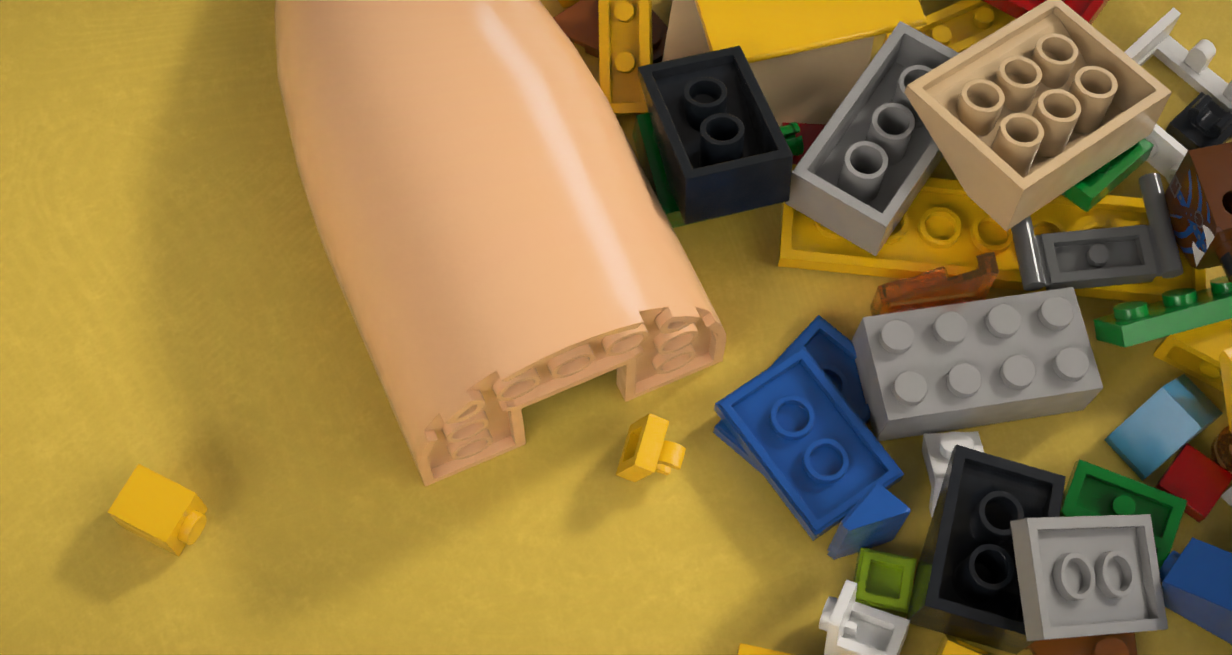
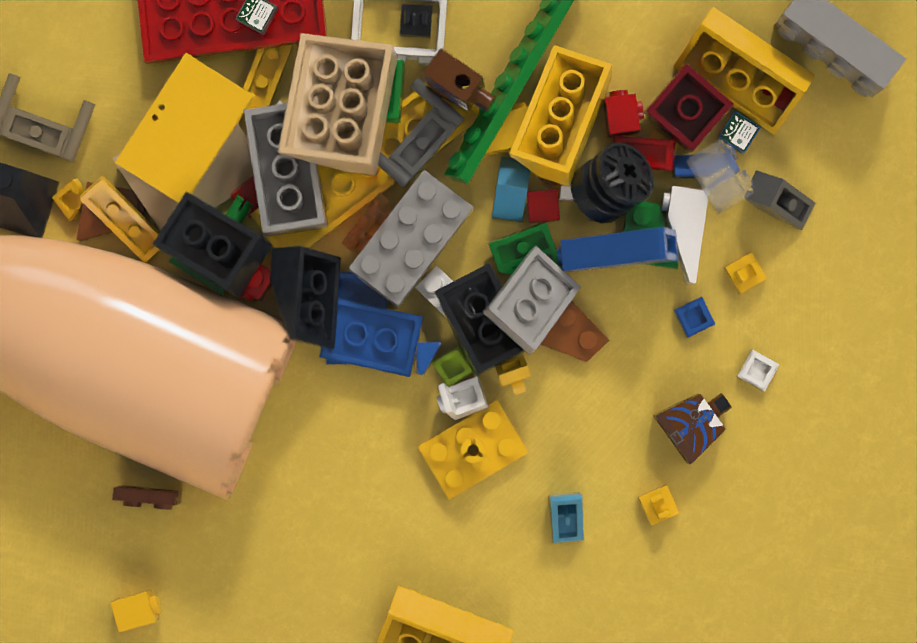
camera: 40 degrees left, 20 degrees up
(311, 365) = (135, 496): none -> copper plate
(647, 450) = (308, 402): yellow tile -> none
(721, 247) = (258, 285): none -> red brick
(780, 300) = (307, 293): none -> black slope

